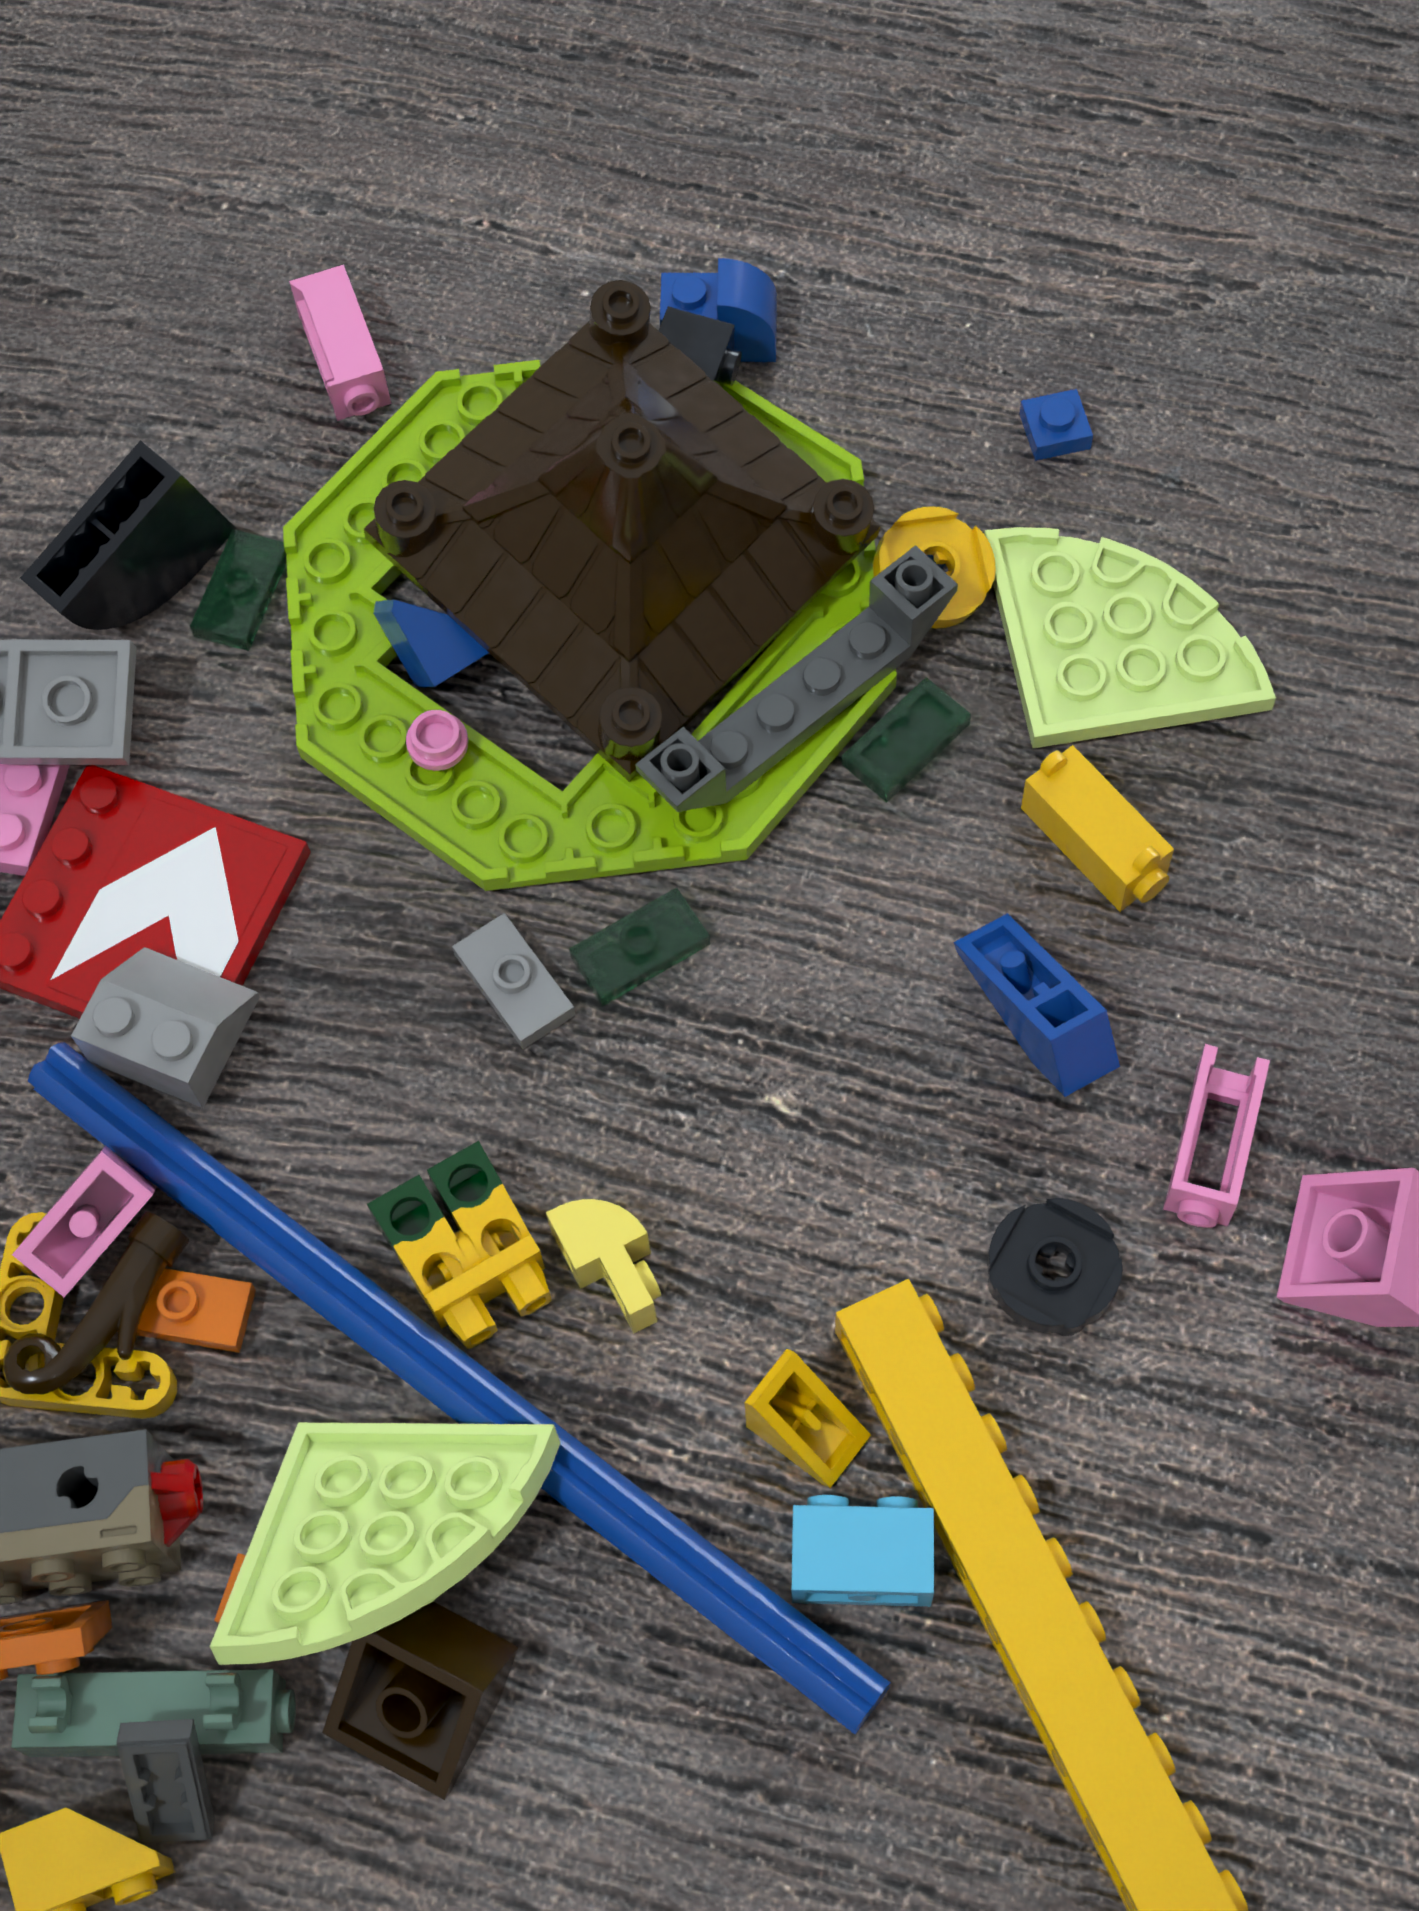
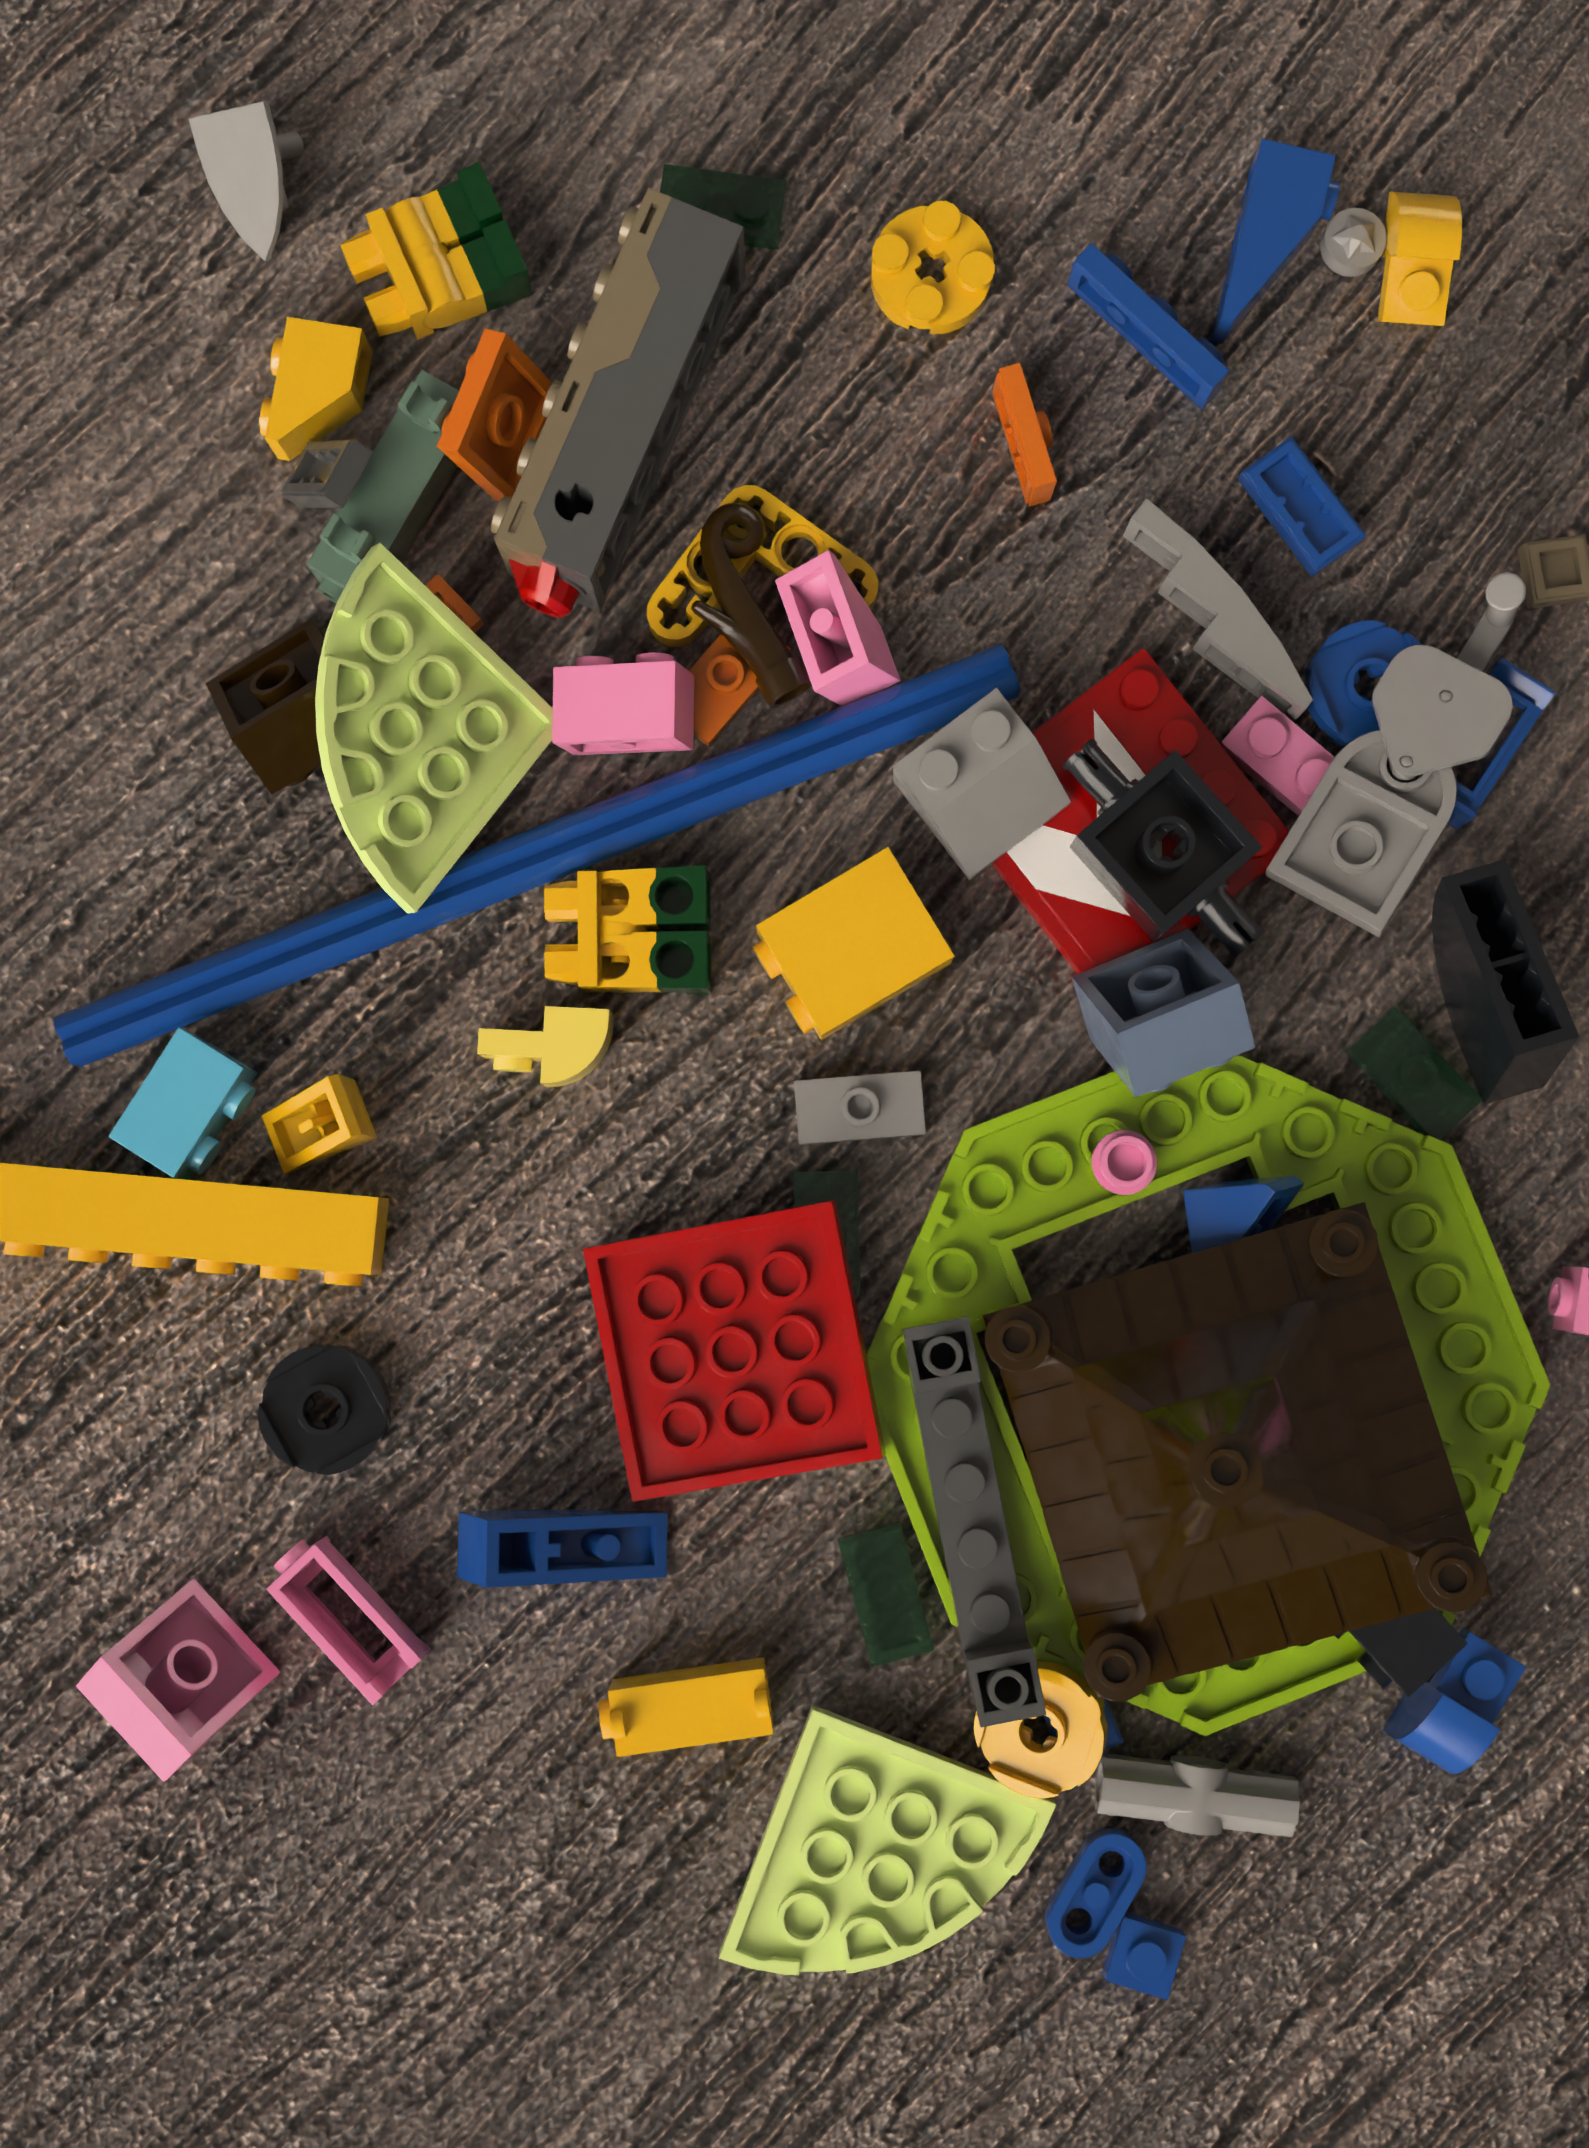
camera: 115 degrees right, 20 degrees up
(144, 842) = (1161, 805): none -> black brick
(254, 1366) = (623, 706): none -> bright pink brick
(290, 770) = (1164, 1012): none -> sand blue brick
(371, 1056) = (851, 945): none -> yellow brick
(782, 955) = (734, 1351): none -> red plate
(908, 441) = (1197, 1795): none -> light grey piece
(1031, 475) = (1098, 1891): none -> blue plate

